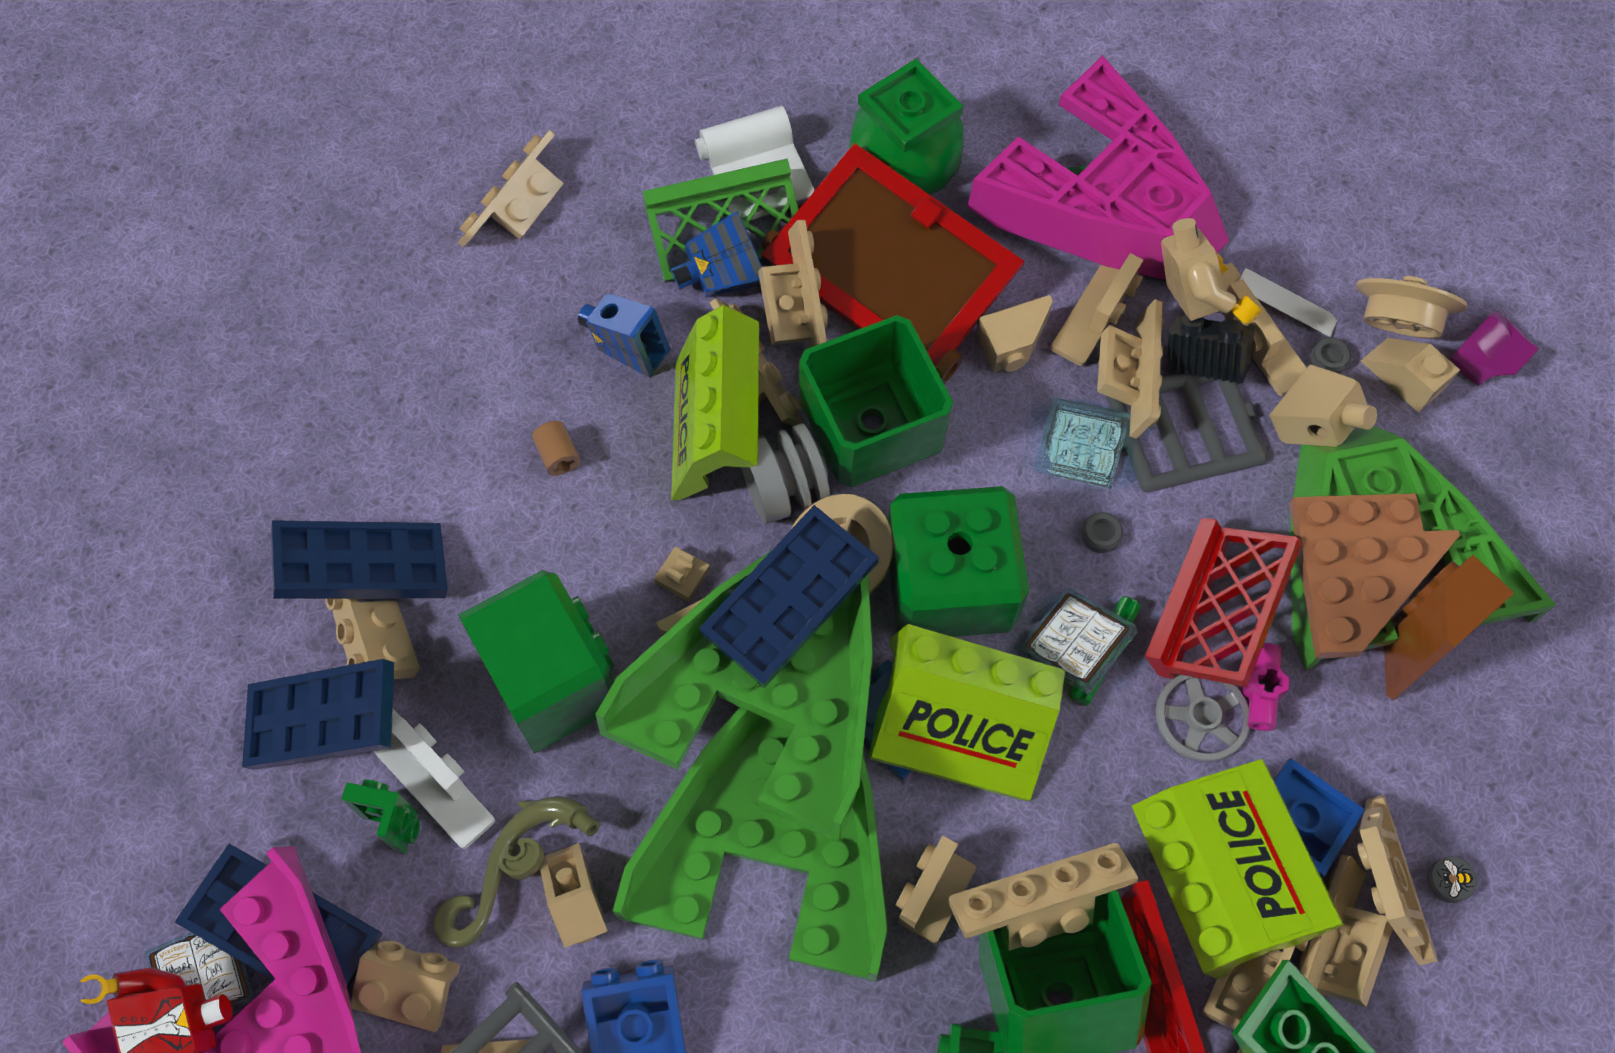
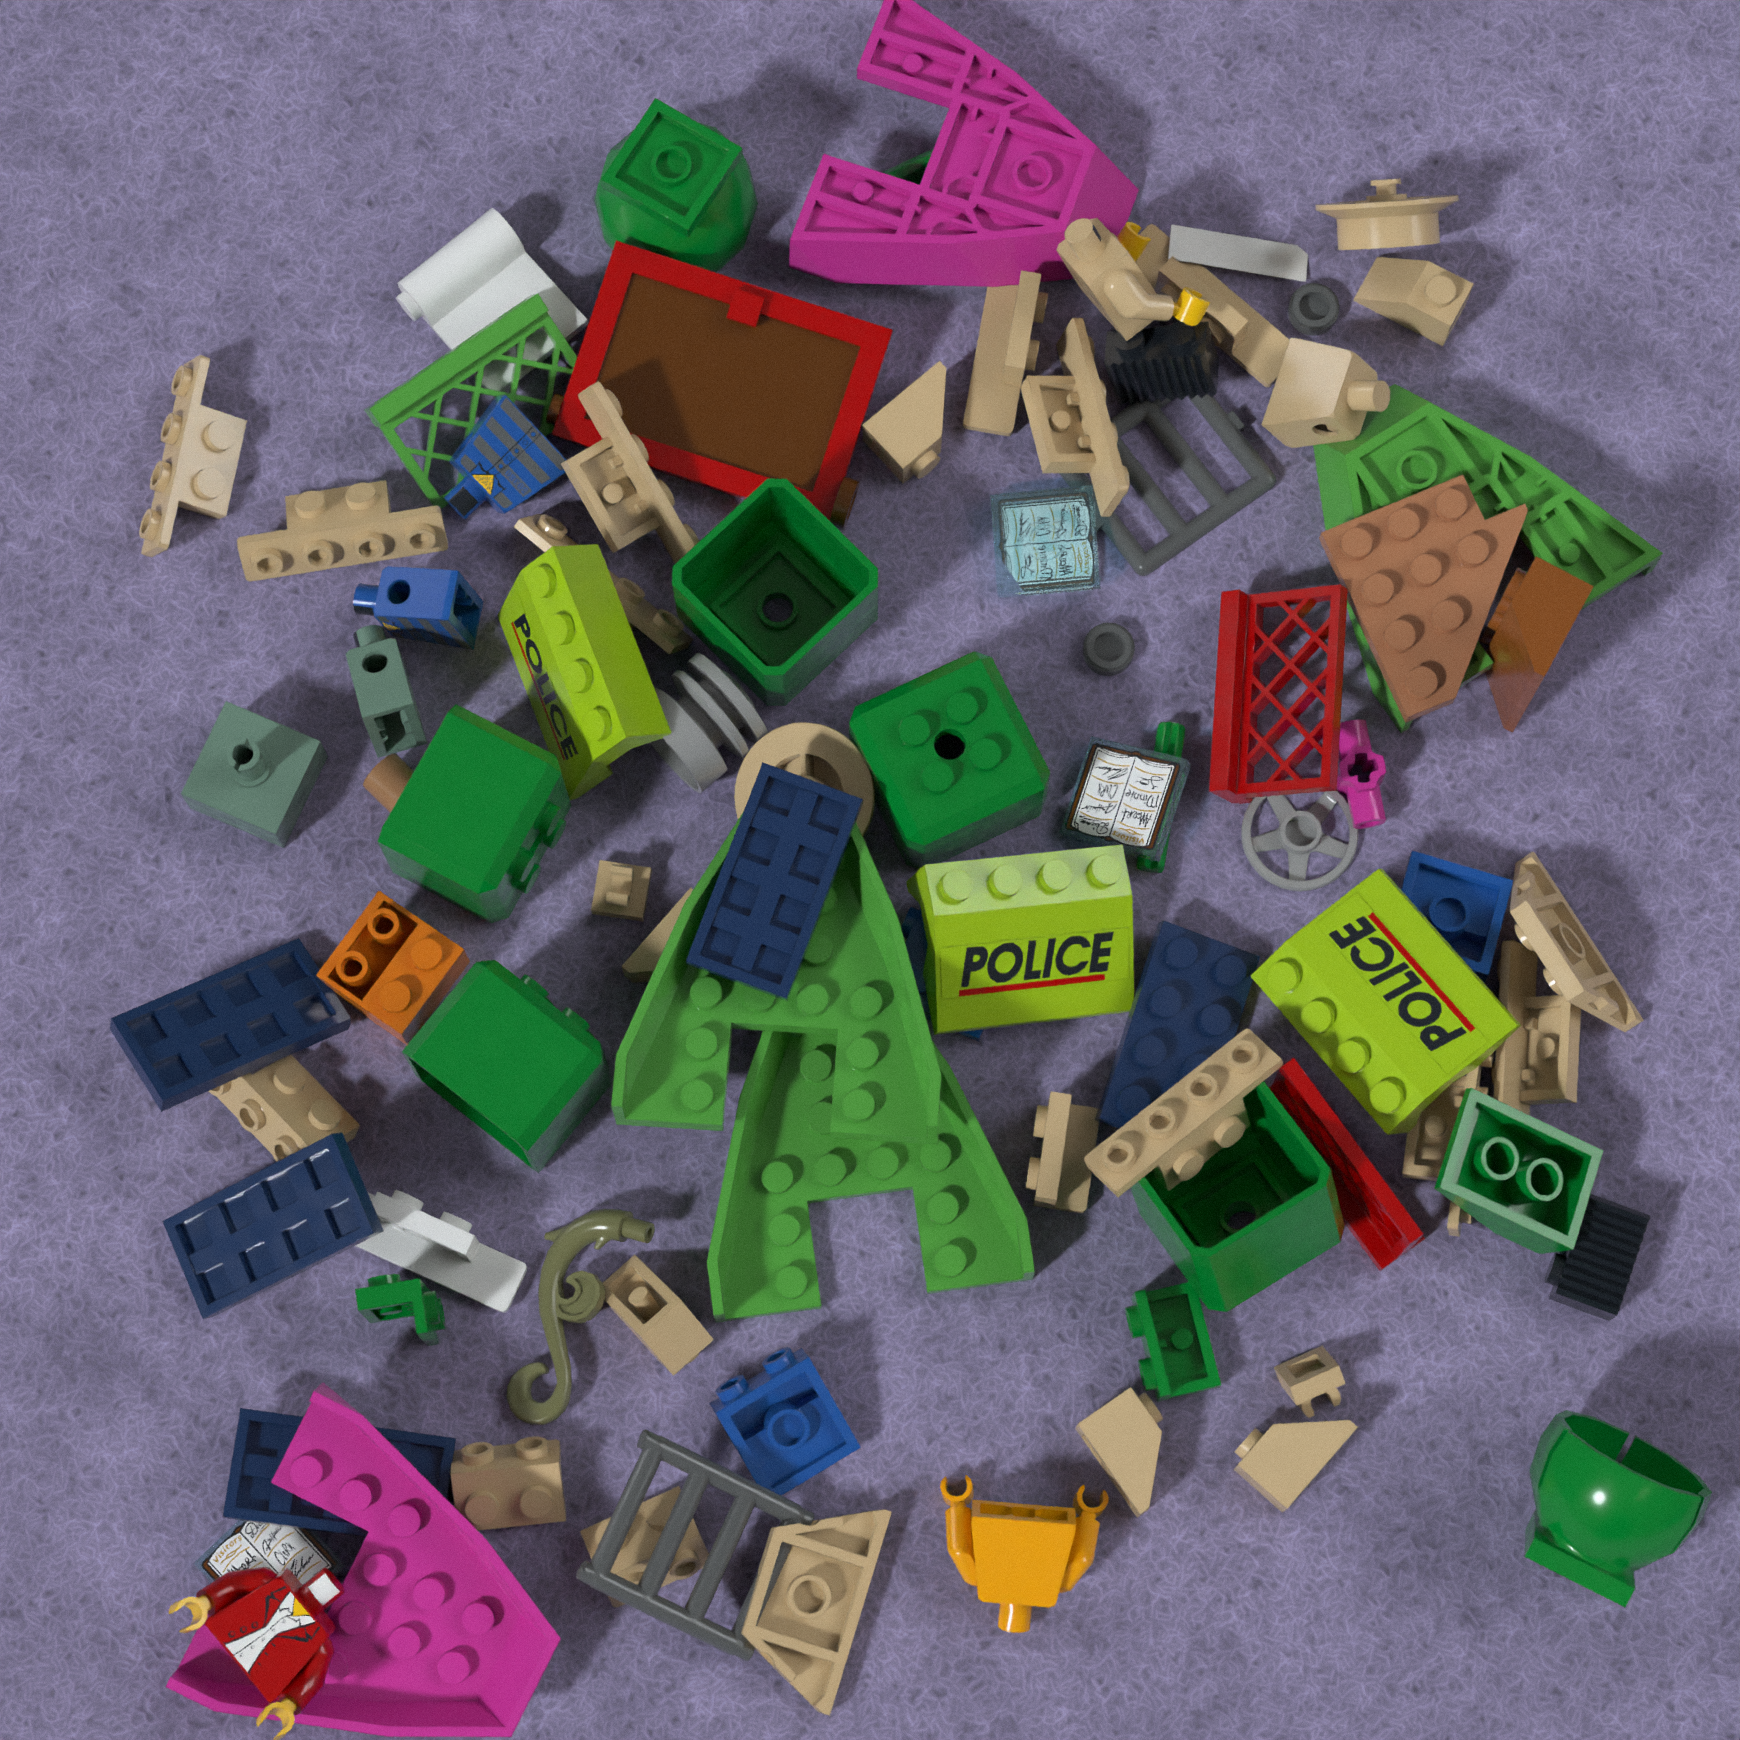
camera: 20 degrees left, 10 degrees up
(460, 401) = (254, 774): none -> sand green brick
(489, 557) = (393, 967): none -> orange slope
(572, 364) = (384, 692): none -> sand green torso
(591, 271) = (339, 531): none -> tan bracket
(594, 475) = (477, 816): none -> green plate
(1067, 814) = (1178, 1019): none -> dark blue plate
(1451, 879) = (1634, 921): dark grey tile -> none
(1493, 350) = (1511, 229): magenta slope -> none

